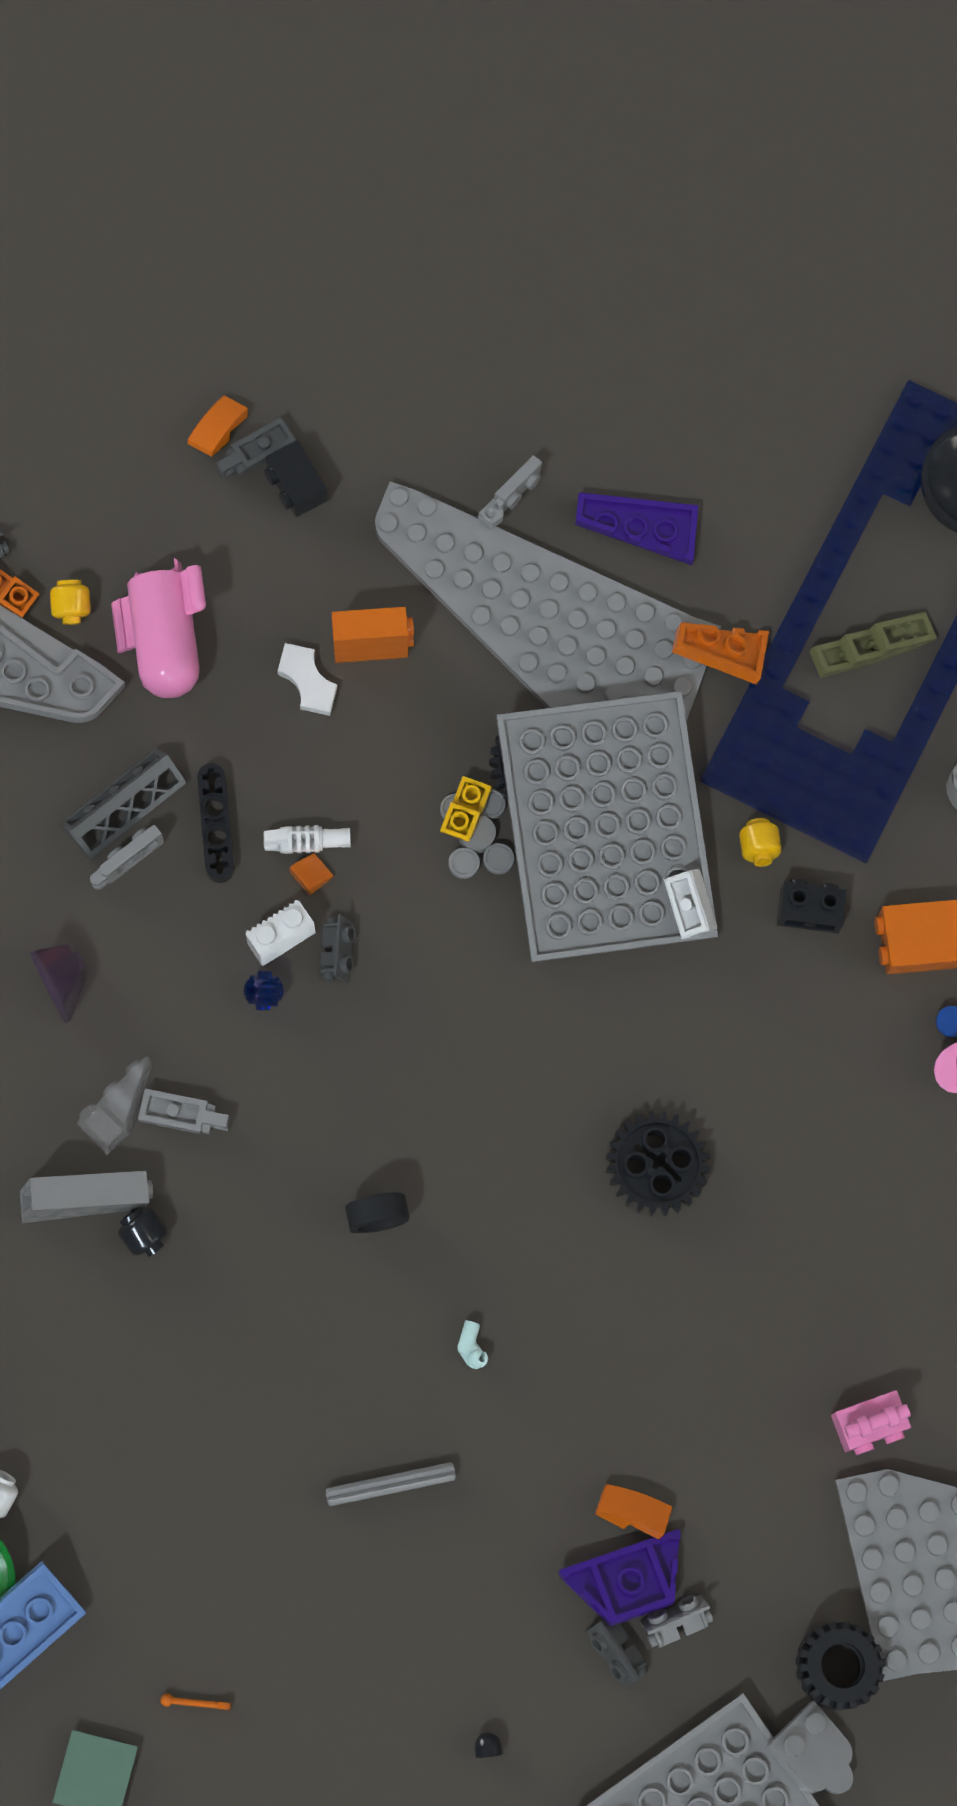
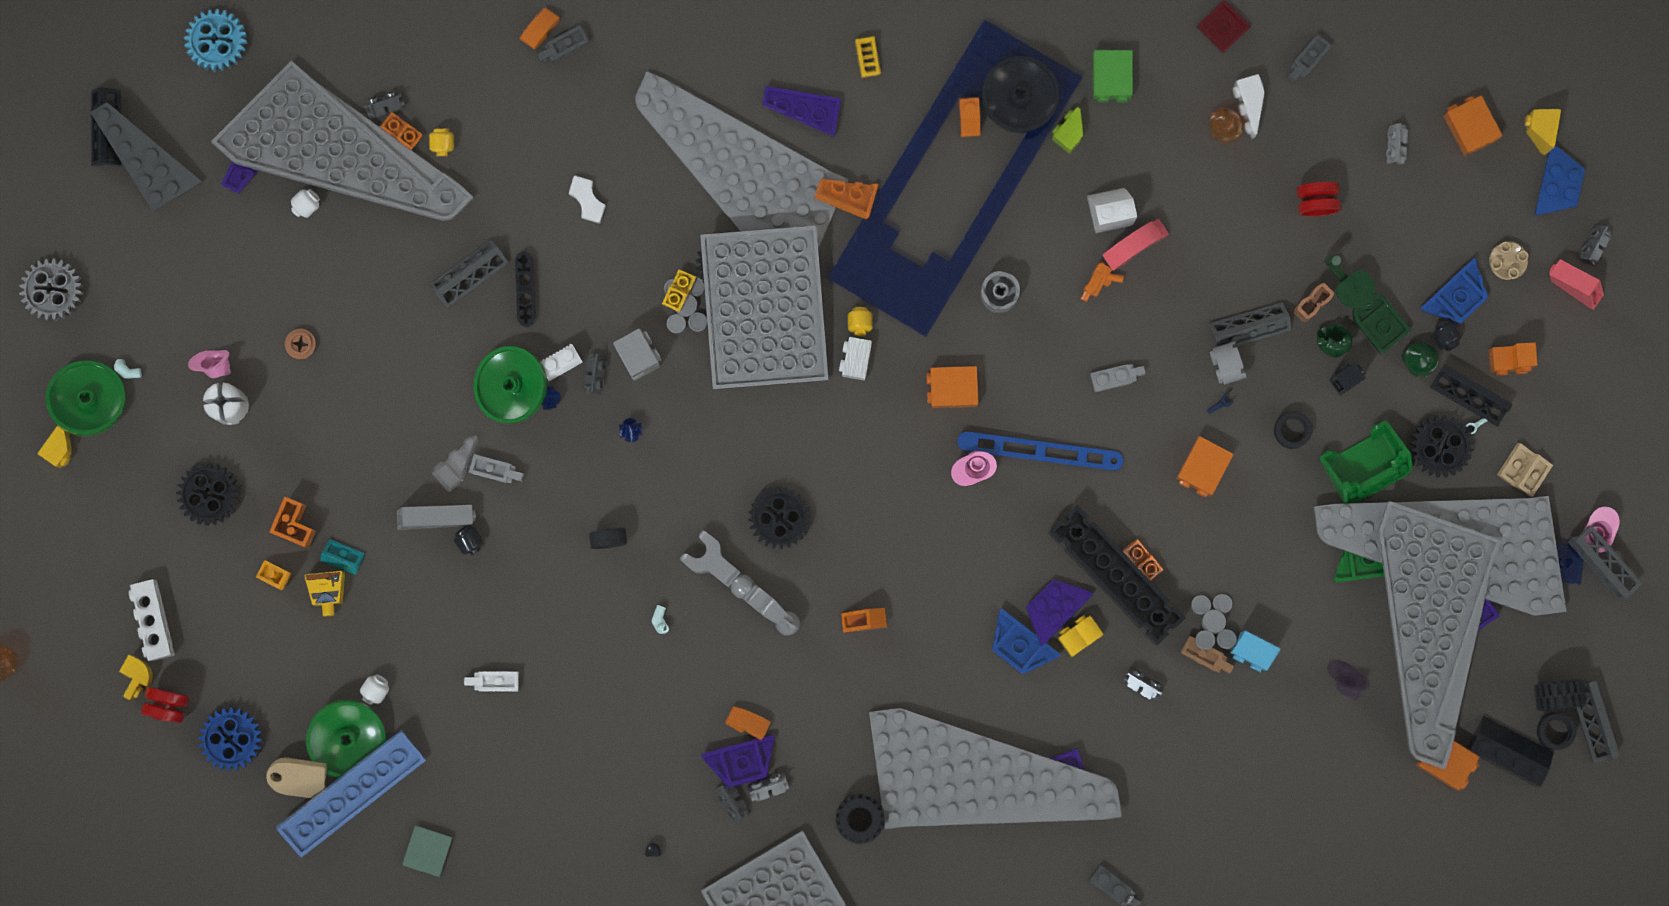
camera: 10 degrees right, 10 degrees up
(62, 976) = (426, 383): clear purple slope -> none
(123, 859) = (467, 309): light grey hinge -> none
(161, 627) = (495, 160): bright pink piece -> none
(167, 1700) = (470, 812): orange hinge -> none
(197, 1467) = (494, 681): none -> white hinge
(200, 972) = (510, 385): none -> green dish
(296, 479) = (587, 68): black brick -> none
(305, 839) = (580, 303): white hinge -> none
(310, 873) = (582, 324): orange slope -> none
(372, 634) = (627, 175): orange brick -> none
(390, 1484) = (605, 698): light grey axle -> none
(402, 1034) = (630, 430): none -> clear blue gear
(406, 911) = (637, 354): none -> light grey piece
(511, 492) = (721, 84): light grey hinge -> none
(604, 1278) = (741, 585): none -> light grey piece
(690, 903) = (812, 359): white slope -> none
(717, 425) = (871, 40): none -> yellow slope
(760, 900) = (856, 358): none -> white brick
(811, 906) = (887, 363): black brick -> none
(812, 1324) = (864, 620): none -> orange slope
(814, 1752) = (840, 866): light grey plate -> none
(872, 1421) = (893, 680): bright pink brick -> none
(873, 645) = (943, 196): olive slope -> none
(903, 520) = (969, 116): none -> orange slope

